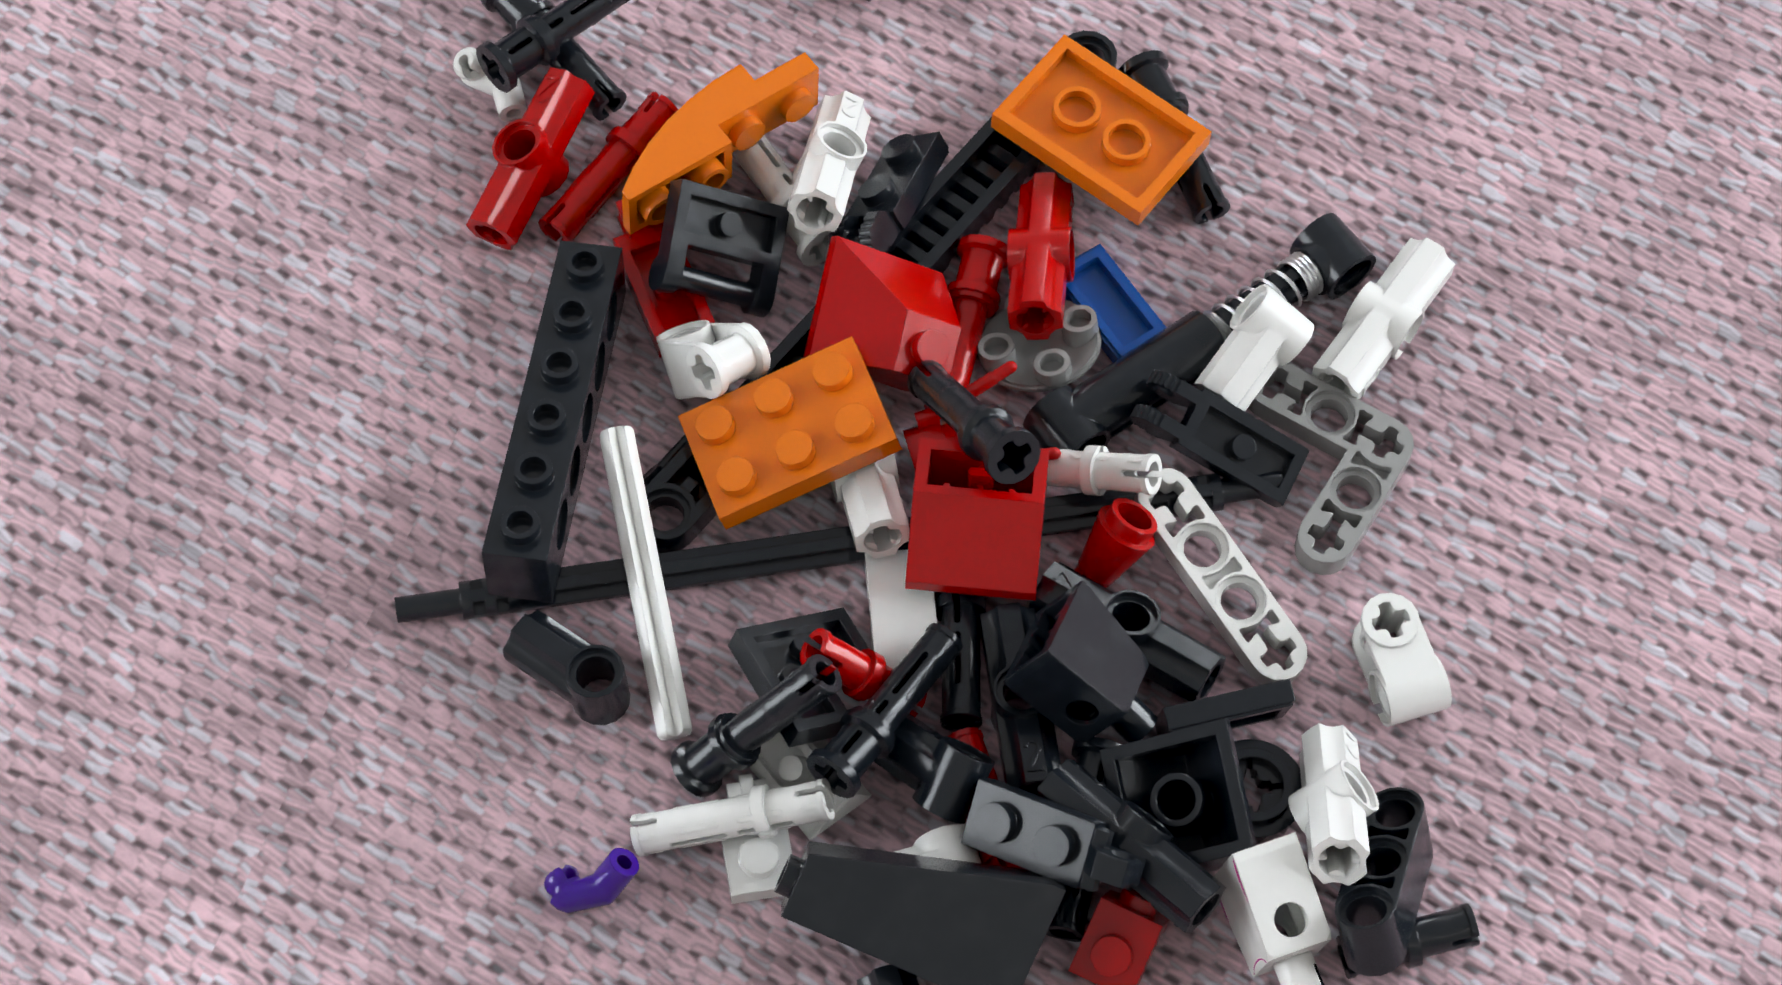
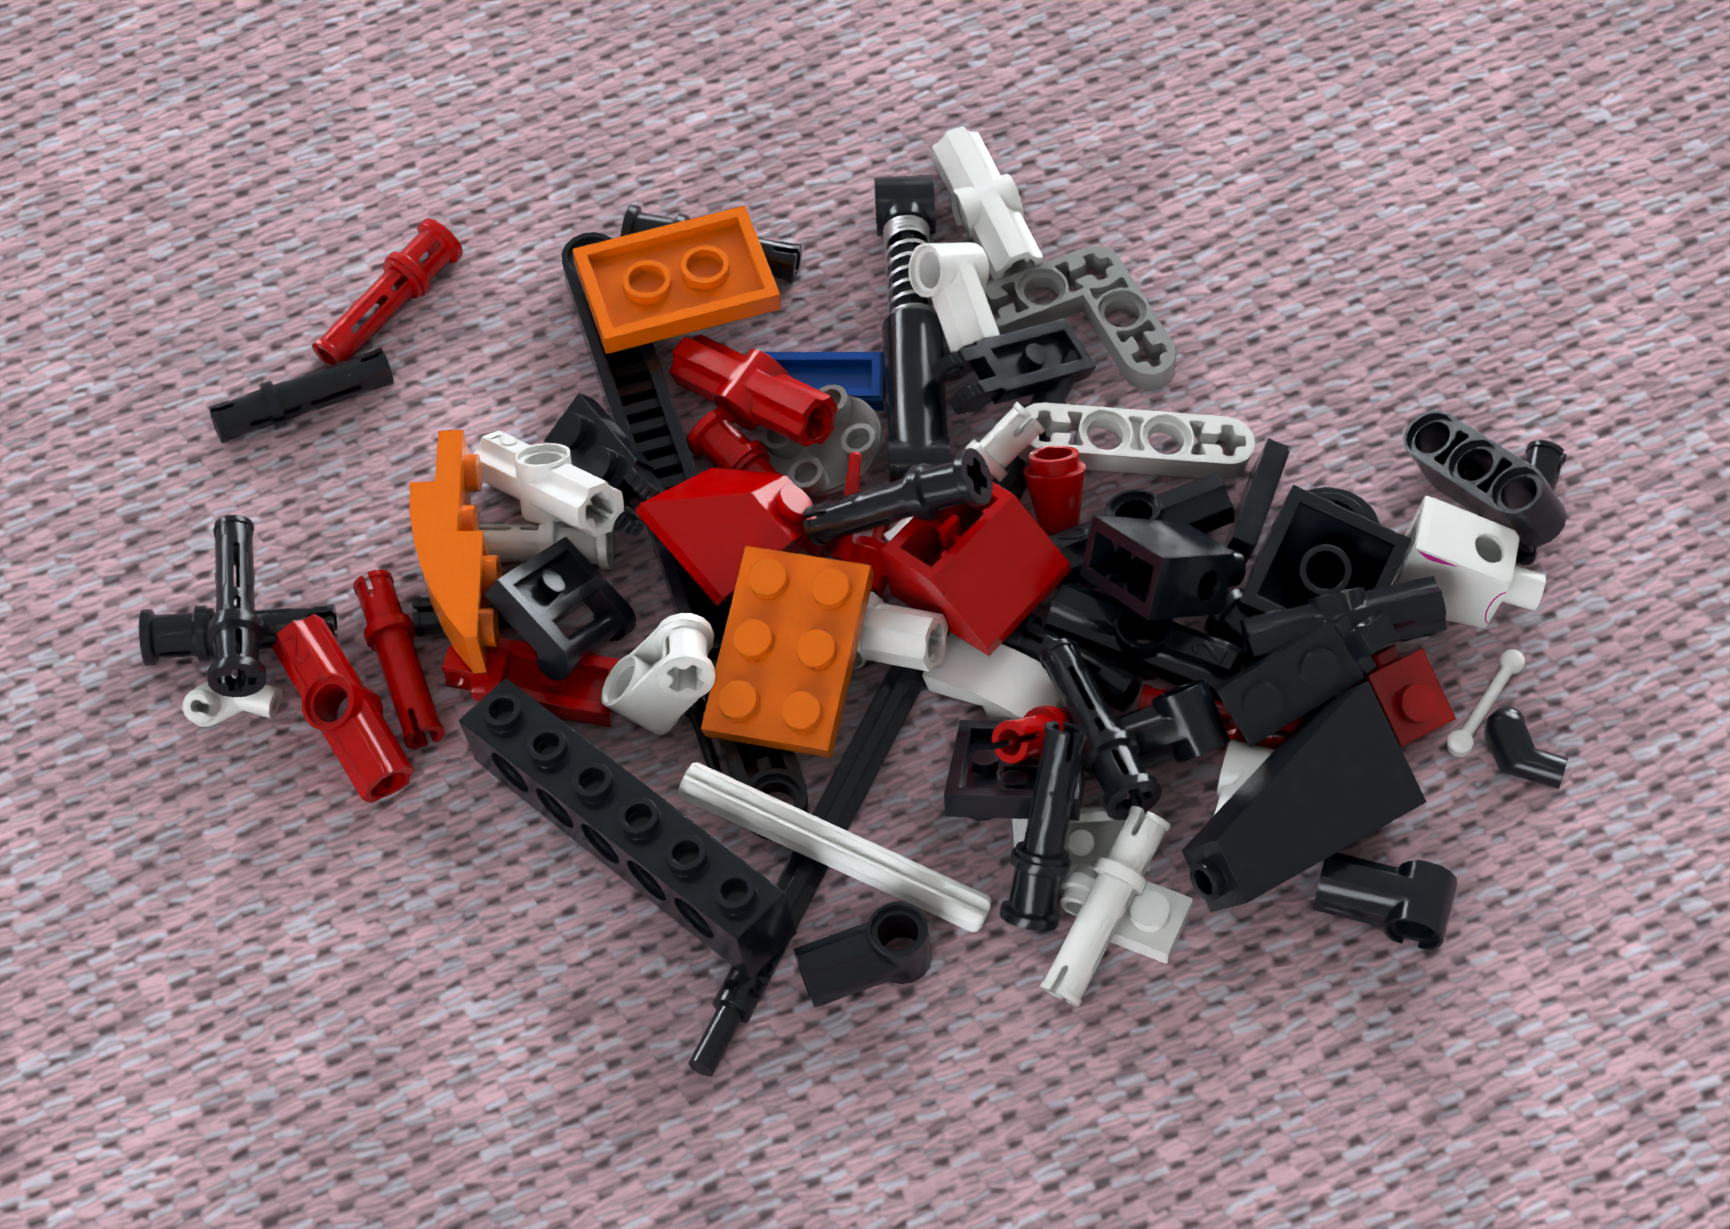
camera: 50 degrees left, 5 degrees down
(600, 889) = (1090, 1052): dark purple arm -> none
(1333, 804) = (1401, 469): white piece -> none
(1403, 669) = (1295, 371): white piece -> none

